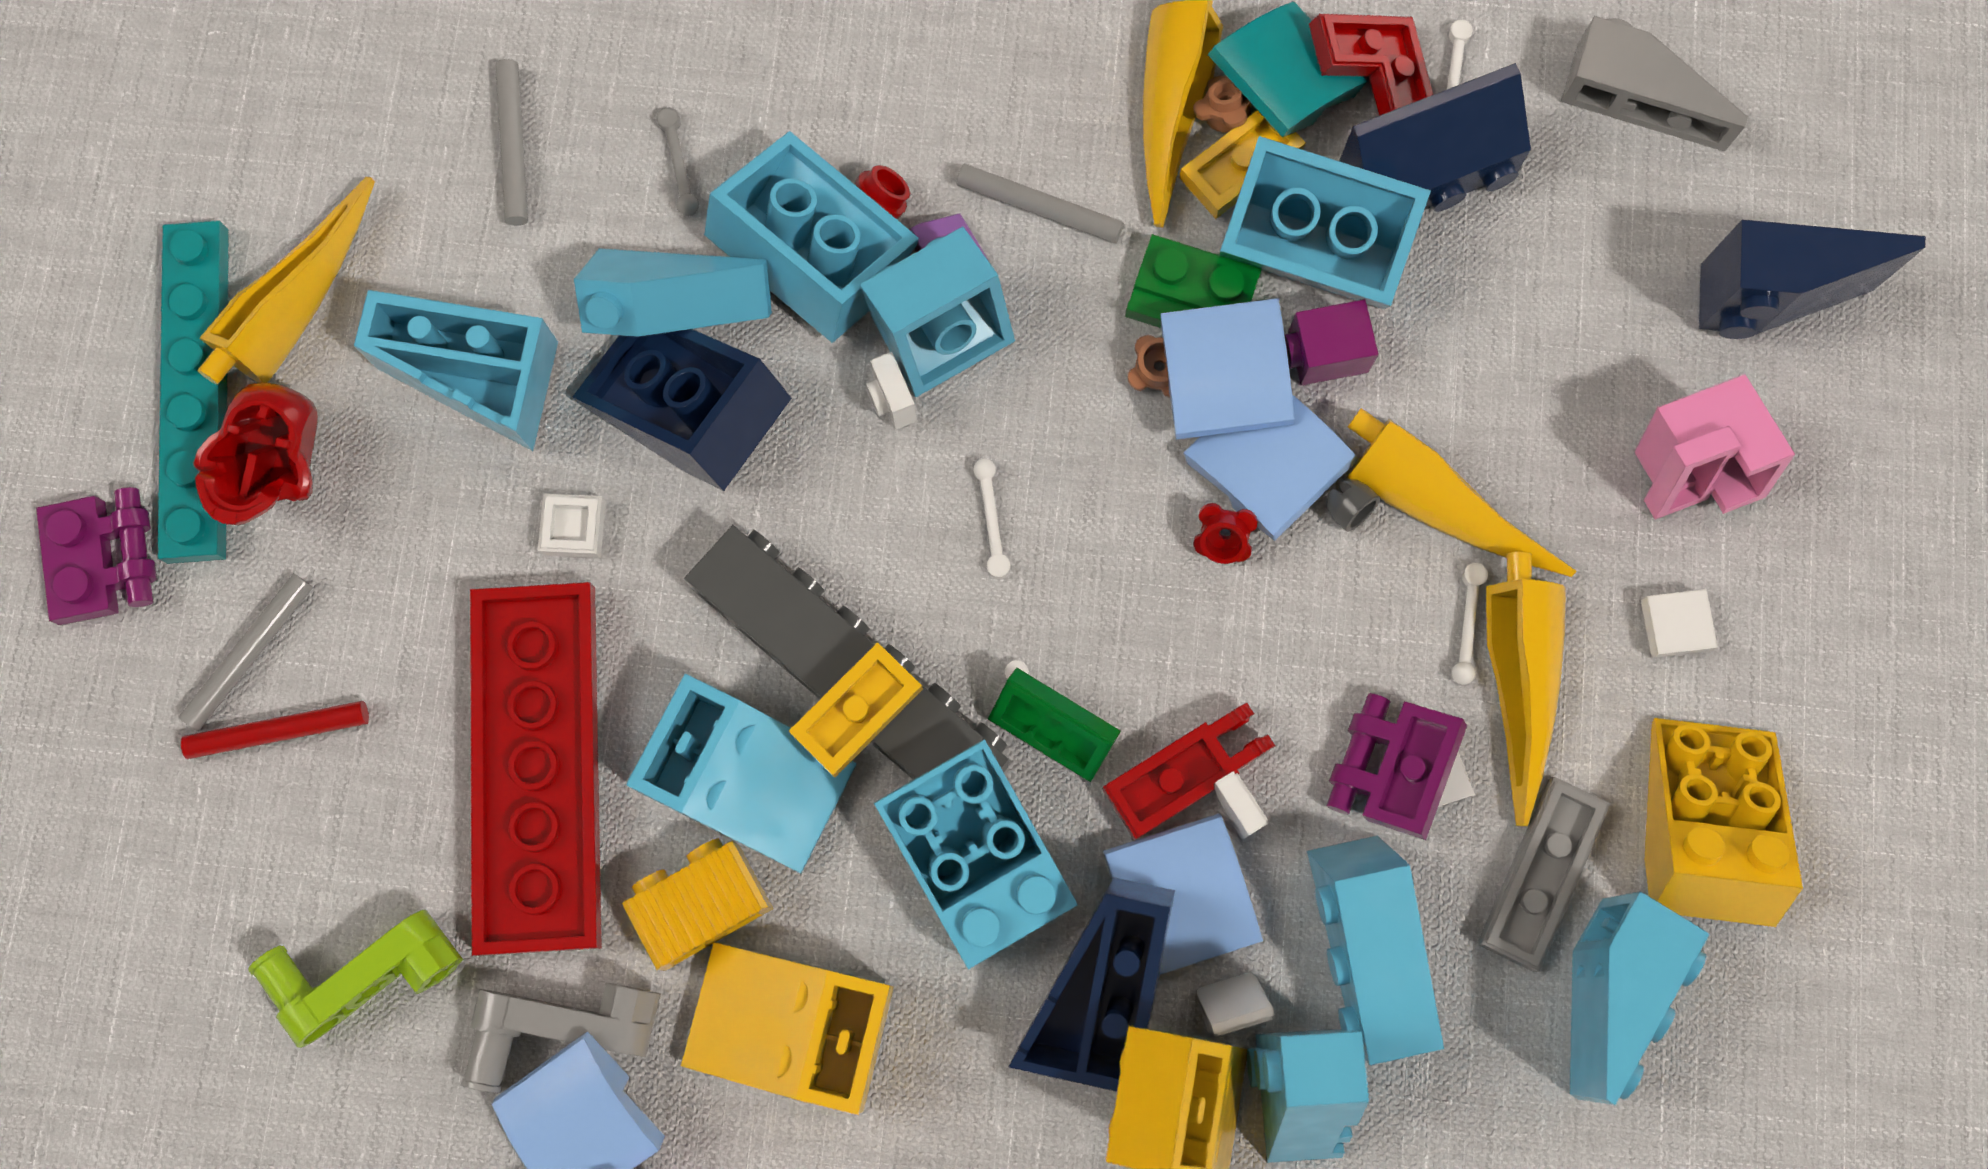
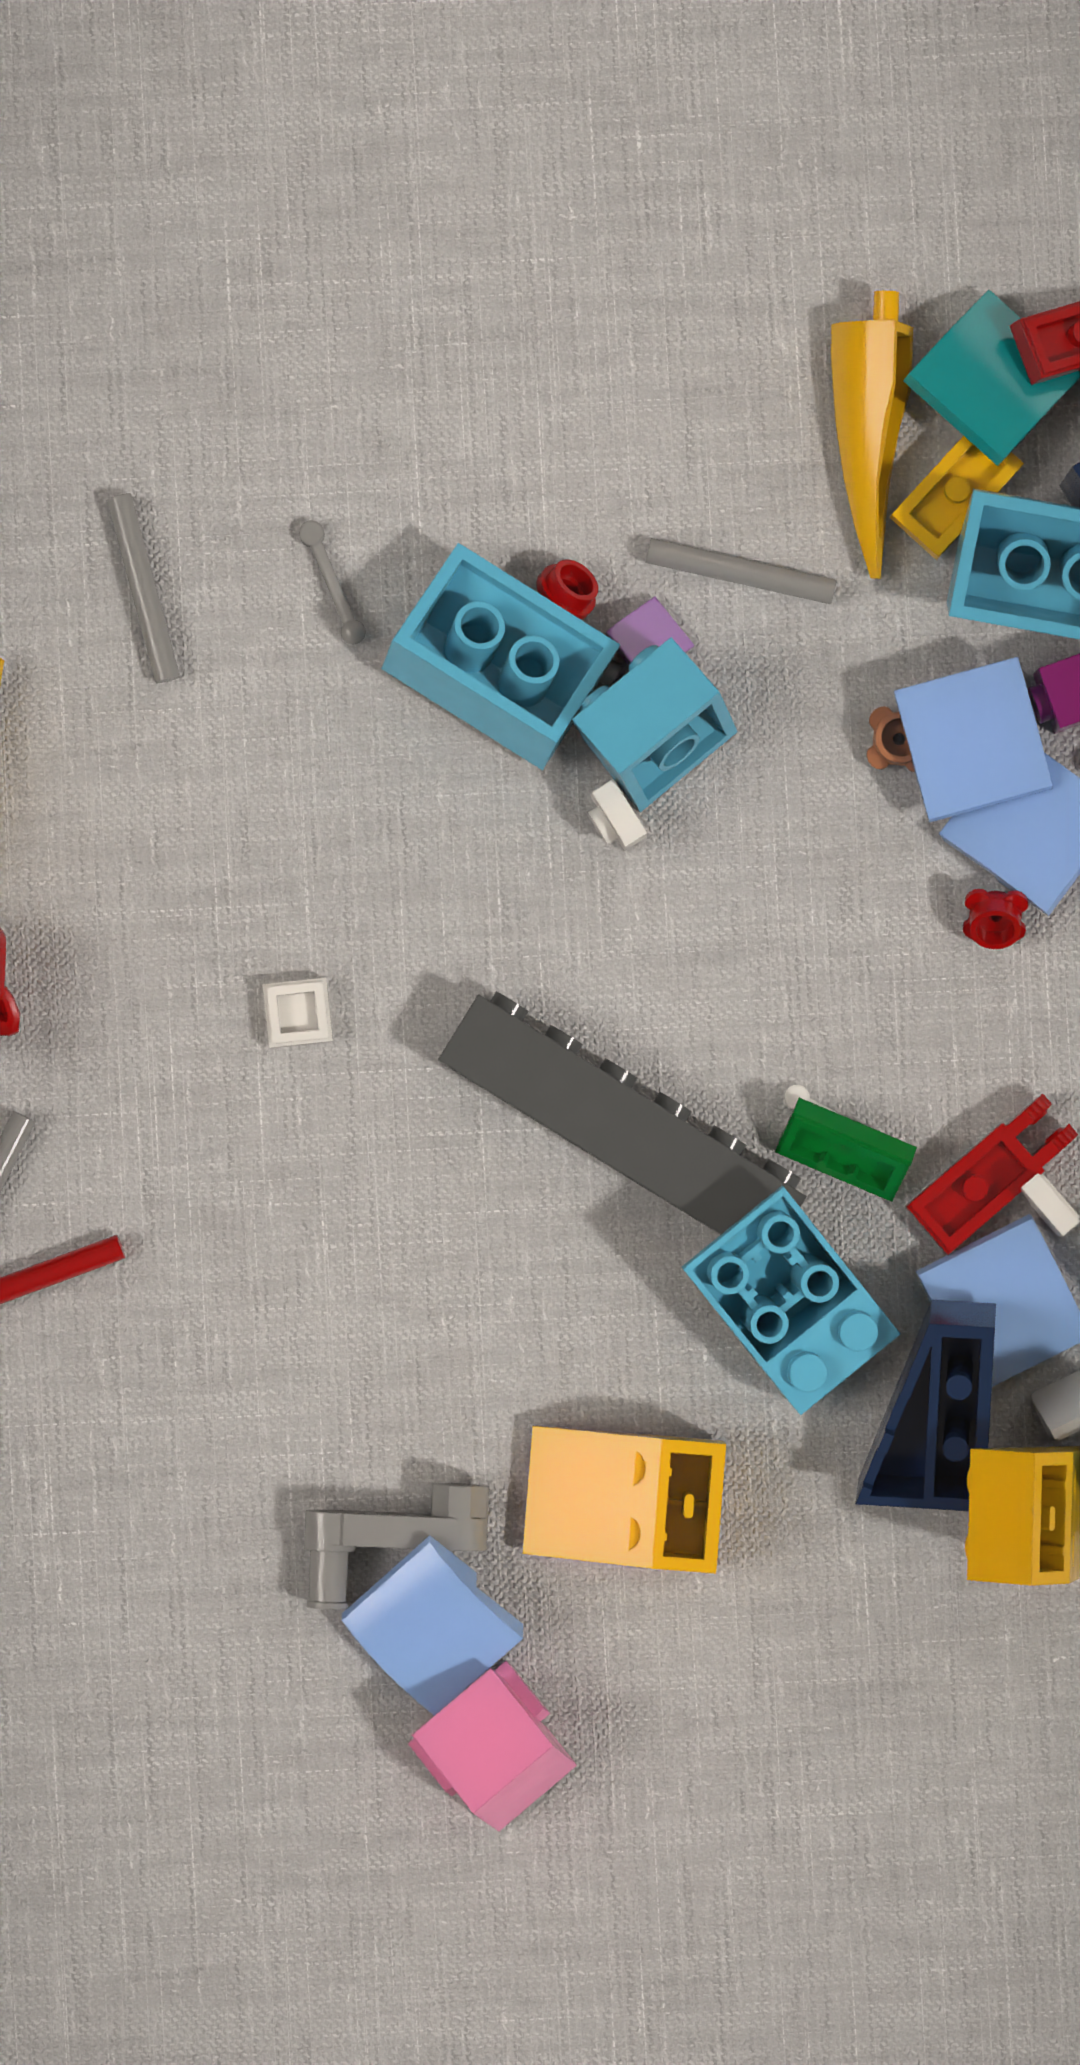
camera: 10 degrees left, 10 degrees up
(409, 949) = (231, 1481): lime beam -> none
(465, 357) = (153, 854): medium azure wedge -> none
(534, 770) = (314, 1276): red plate -> none
(668, 292) = (356, 747): medium azure slope -> none
(686, 400) = (391, 854): dark blue slope -> none
(696, 904) = (510, 1390): yellow brick -> none
(738, 774) = (535, 1253): medium azure slope -> none
(856, 709) = (645, 1173): yellow plate -> none
(998, 564) = (759, 984): white hinge -> none
(1185, 279) = (916, 643): green plate -> none
(1223, 105) = (927, 442): nougat plate -> none

